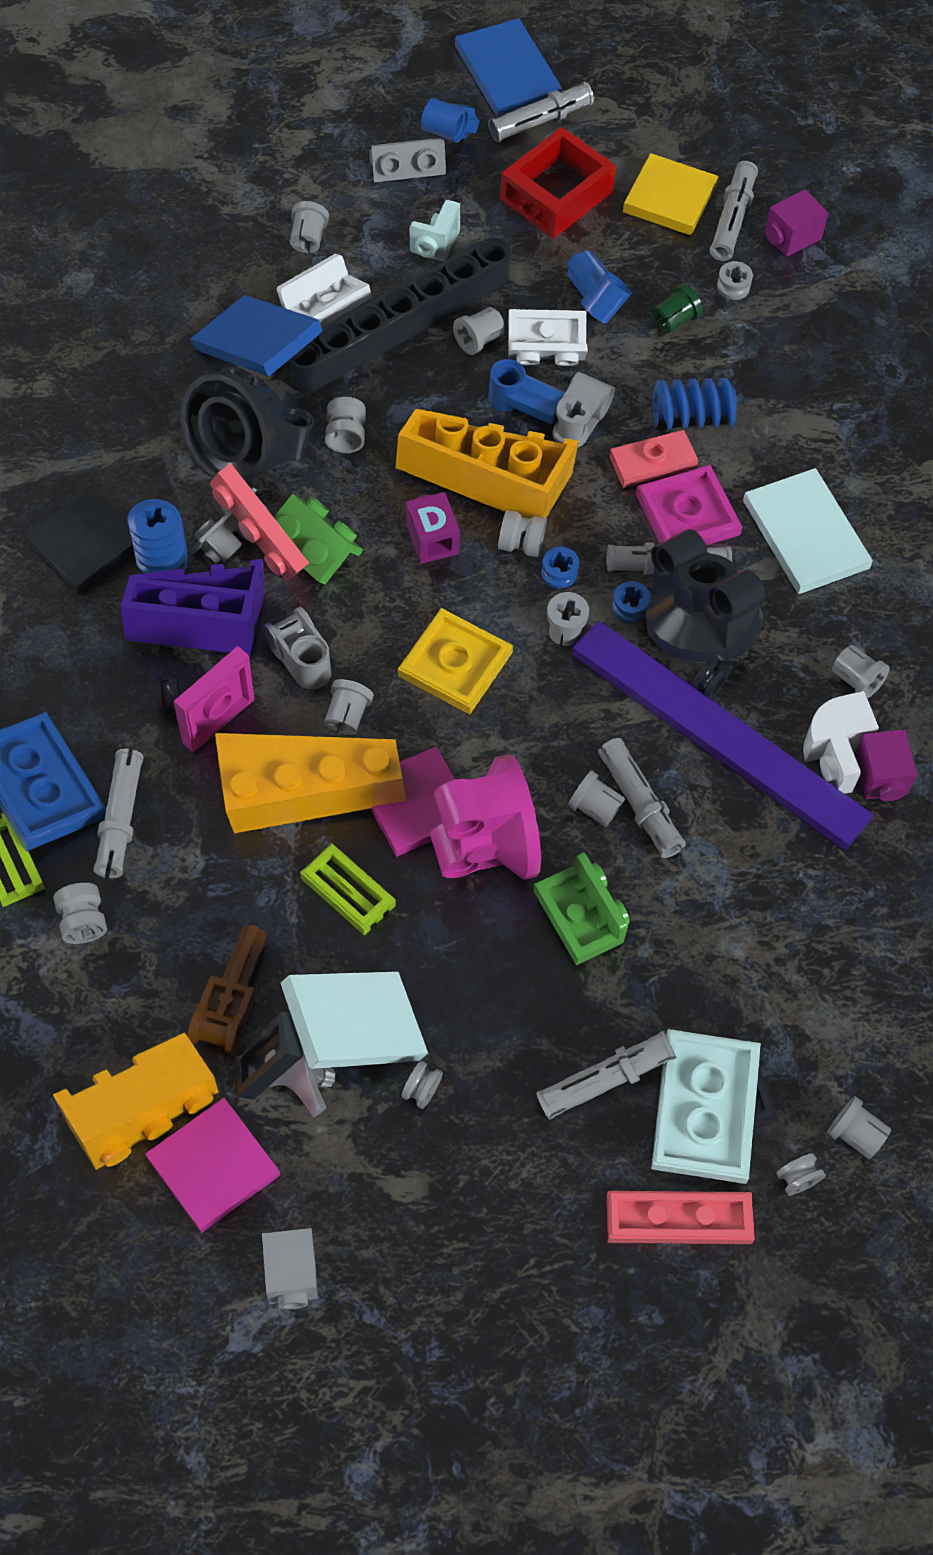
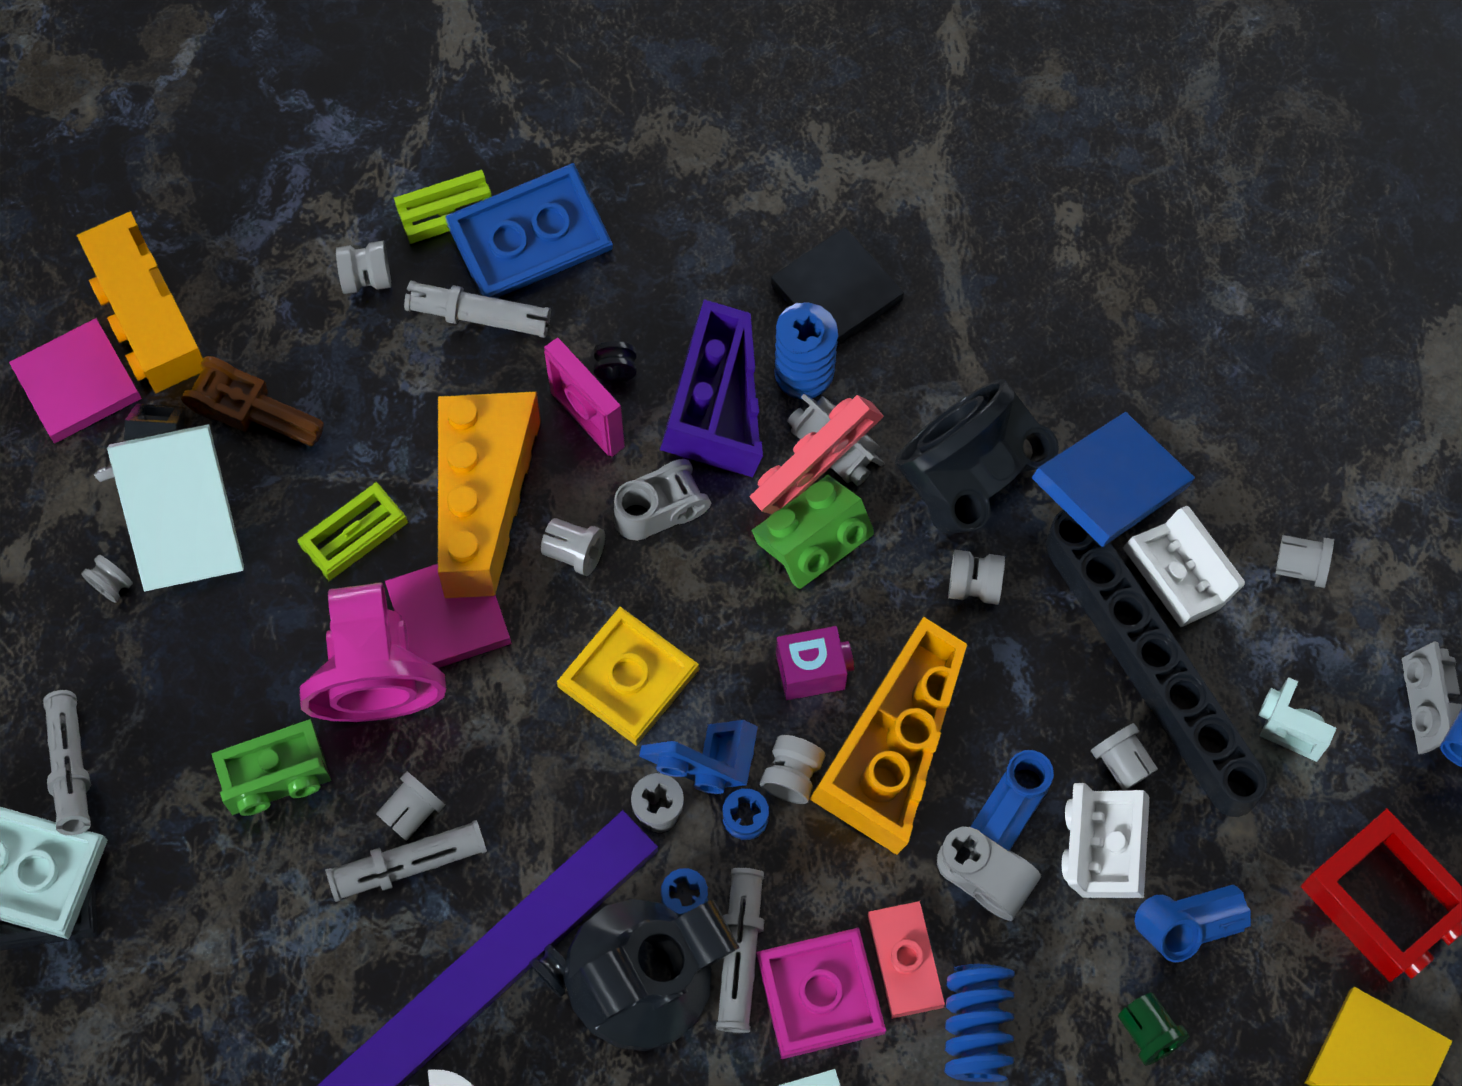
camera: 100 degrees right, 5 degrees up
(521, 580) = (724, 758): none -> blue bracket

